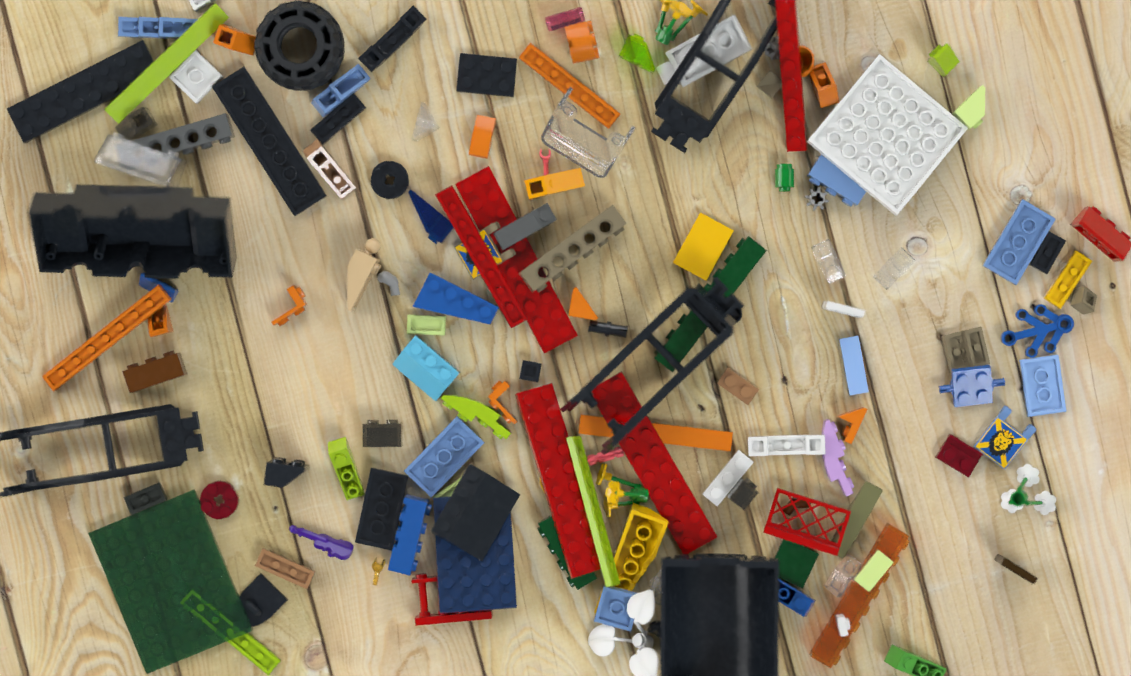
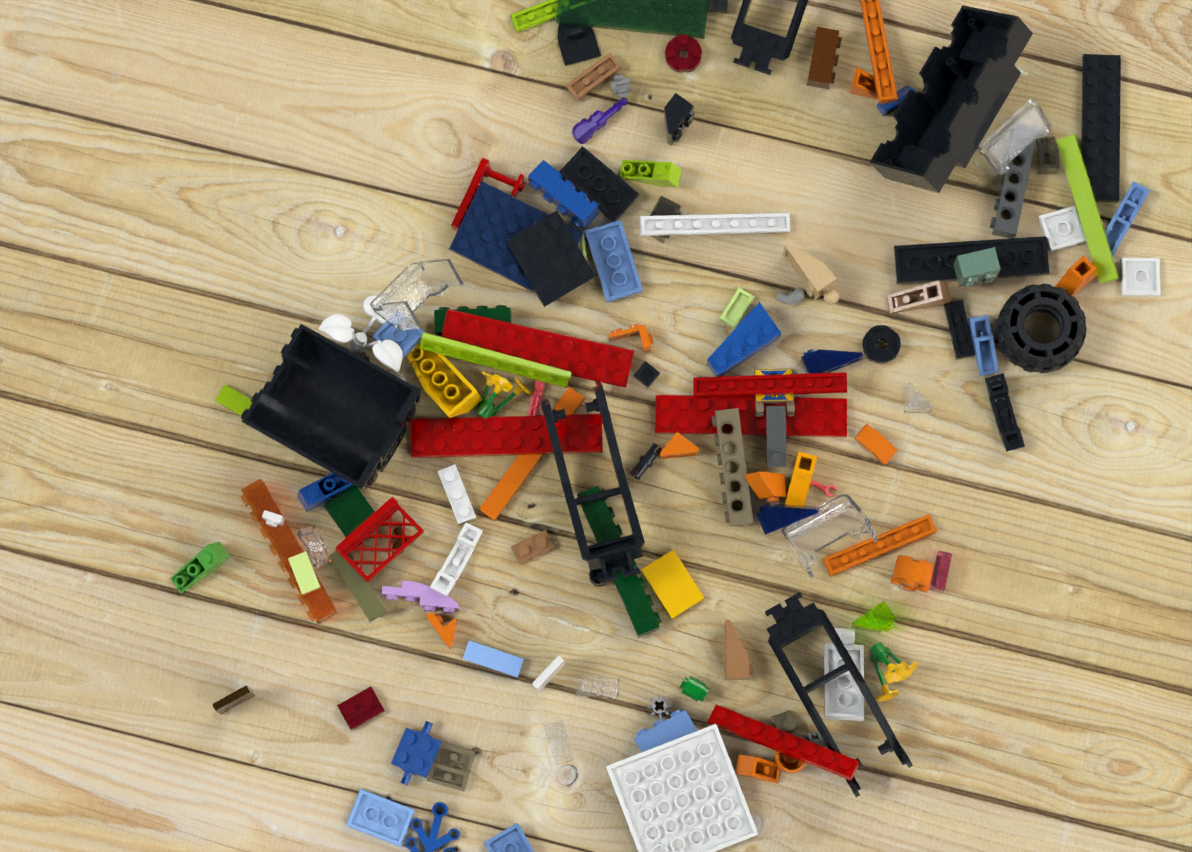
camera: 125 degrees right, 10 degrees down
(276, 131) = (977, 267): none -> sand green brick
(280, 539) = (620, 86): none -> light grey gear
(298, 296) = (822, 211): orange bracket -> none
(362, 385) = (714, 224): none -> white tile
(377, 569) = (549, 153): clear yellow hand -> none
(426, 368) = (699, 287): medium azure slope -> none
(470, 408) = (642, 306): lime slope -> none
(486, 75) = (928, 478): black plate -> none
(570, 620) = (412, 289): none -> clear windscreen
(572, 209) = (767, 485): none -> orange slope
(592, 183) = (780, 515): none -> clear blue slope
(740, 153) = (736, 659): none -> medium nougat slope
(743, 493) = (436, 497): clear smoke brick -> none
(1002, 441) = (351, 754): flag -> none
(1015, 500) = (293, 734): white plant -> none

